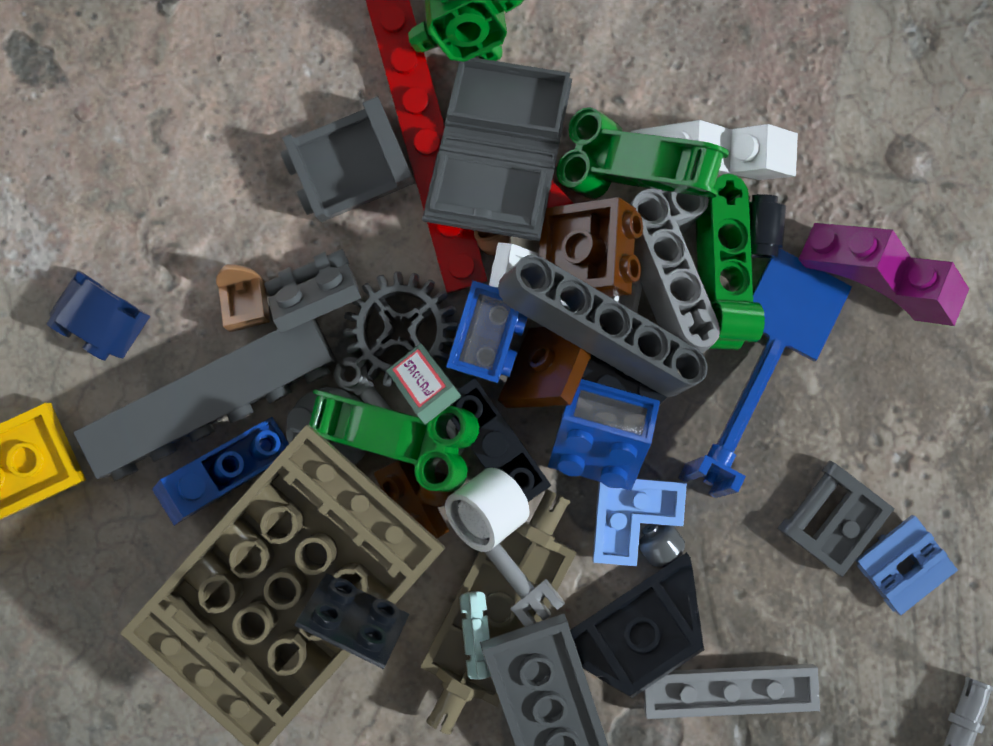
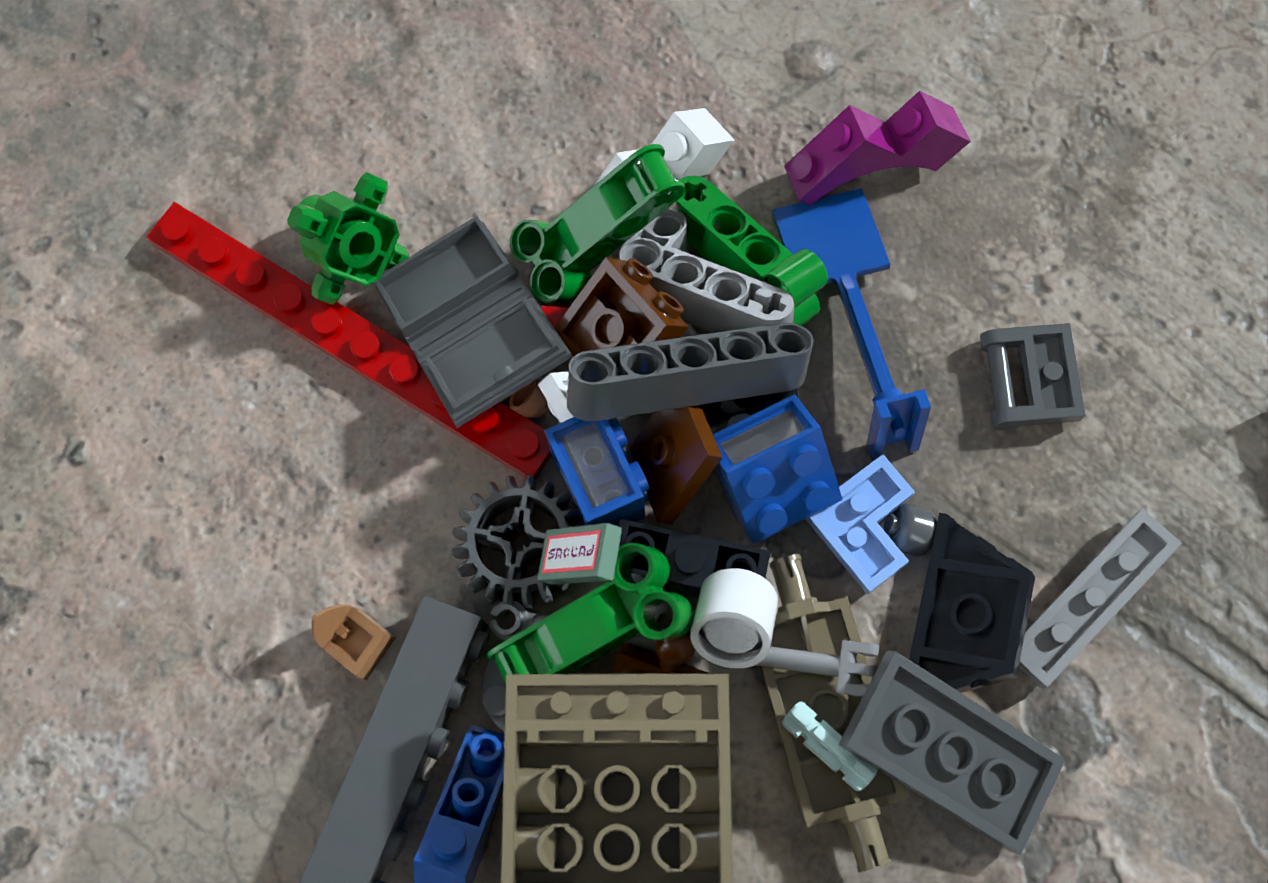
camera: 35 degrees left, 15 degrees down
(97, 317) = (229, 773): dark blue cylinder -> none
(311, 290) = (410, 574): dark grey plate -> none
(347, 162) = (351, 443): dark grey panel -> none
(353, 620) = (725, 794): black hinge -> none
(766, 225) = (749, 195): black brick -> none
(929, 571) = (1148, 353): medium blue piece -> none

